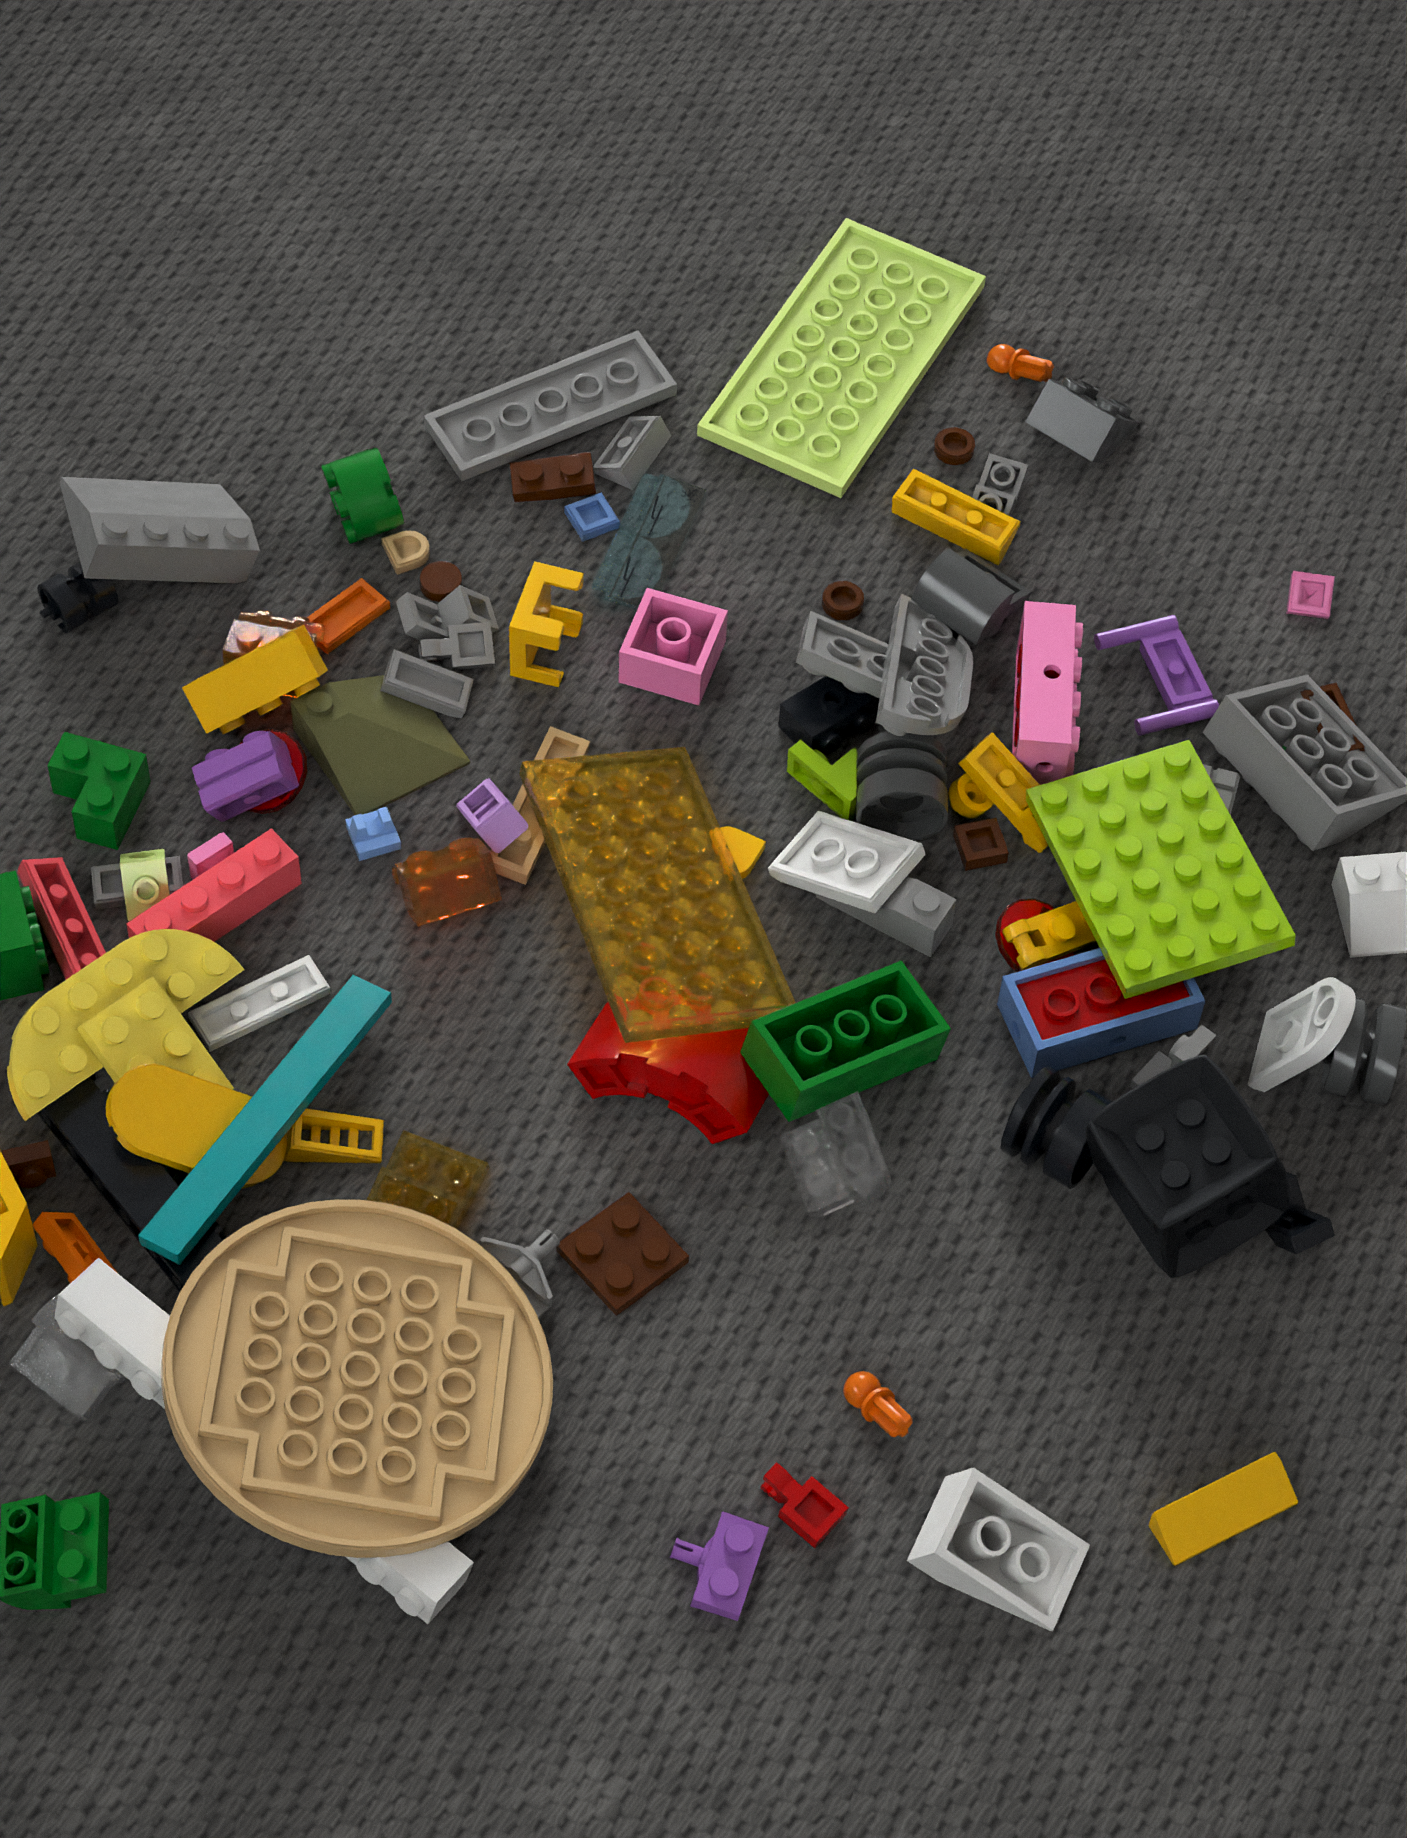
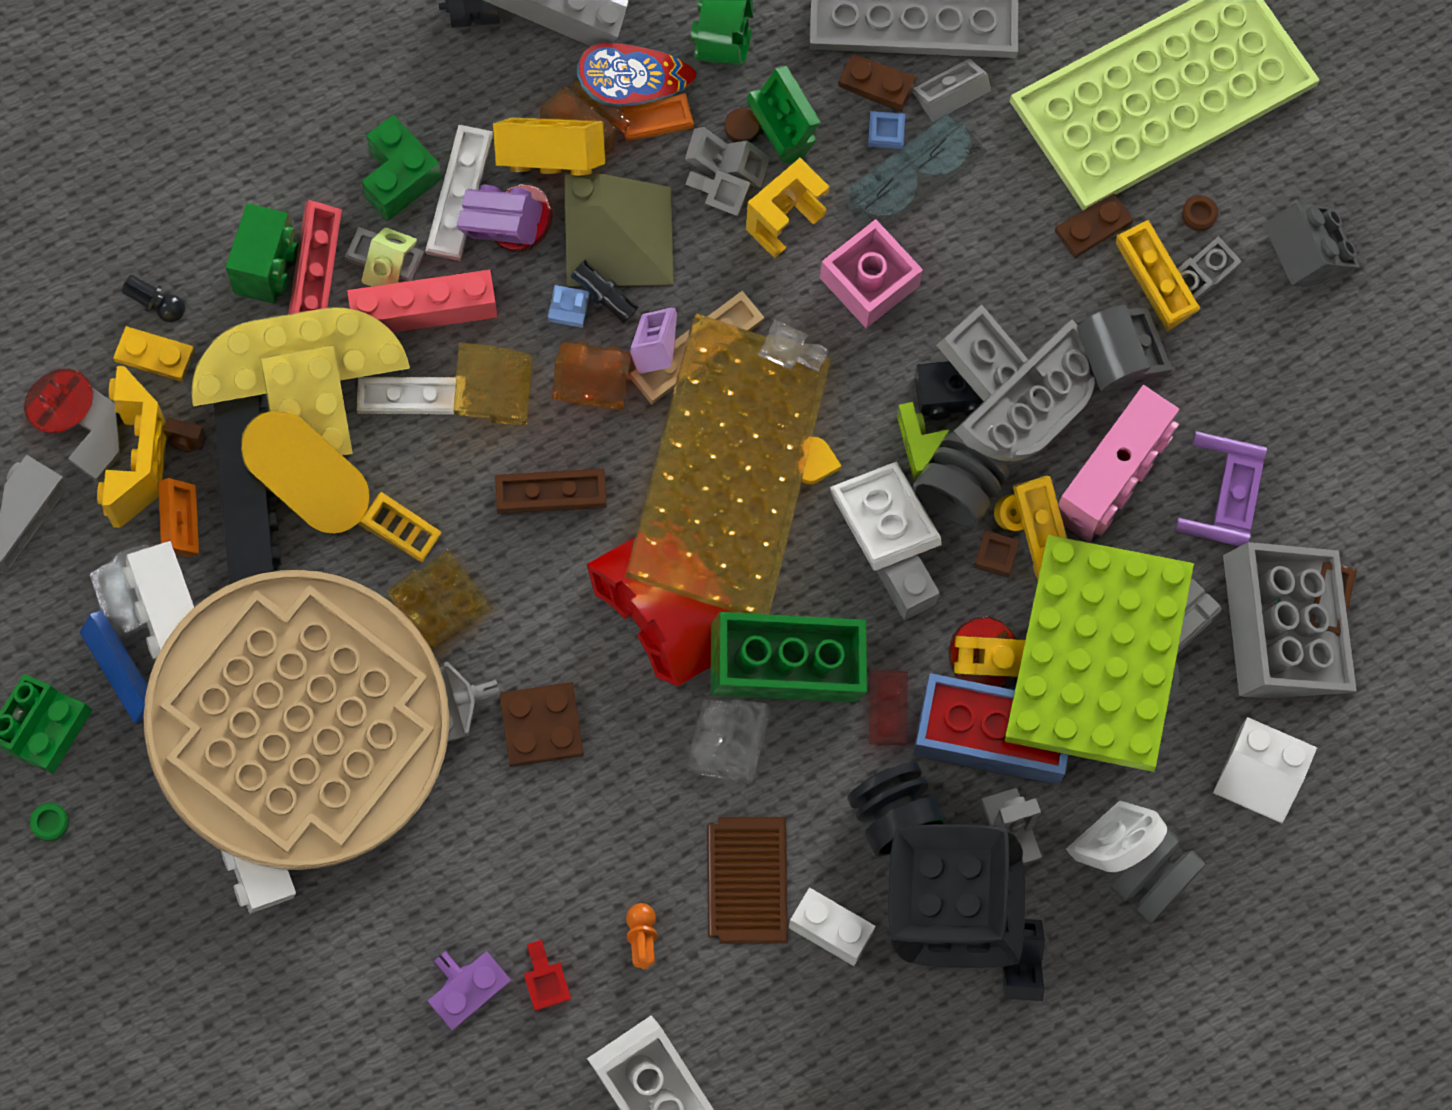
camera: 30 degrees right, 15 degrees up
(106, 1442) = (115, 663): none -> blue tile
(129, 1654) = (49, 822): none -> green tile
(172, 765) = (463, 173): none -> white tile
(209, 854) = (441, 265): bright pink tile -> none
(264, 1120) = (355, 491): teal tile -> none
(294, 582) = (631, 74): none -> shield
(343, 941) = (492, 383): none -> clear yellow slope
(404, 798) = (604, 291): none -> black pin
(406, 550) = (733, 86): tan tile -> none
(427, 684) = (677, 208): light grey tile -> none
(476, 1018) = (550, 491): none -> reddish brown plate
(485, 539) = (784, 115): none -> green brick
(638, 752) = (787, 345): none -> clear plate
(842, 600) = (1028, 299): reddish brown tile -> none
(859, 505) = (1093, 225): none -> reddish brown plate
(948, 1291) = (747, 880): none -> reddish brown window
(977, 1047) = (888, 707): none -> clear red plate
(1019, 363) = (1296, 168): orange axle -> none
(1072, 1282) = (831, 926): none -> white brick
(1310, 594) = (1387, 486): bright pink tile -> none

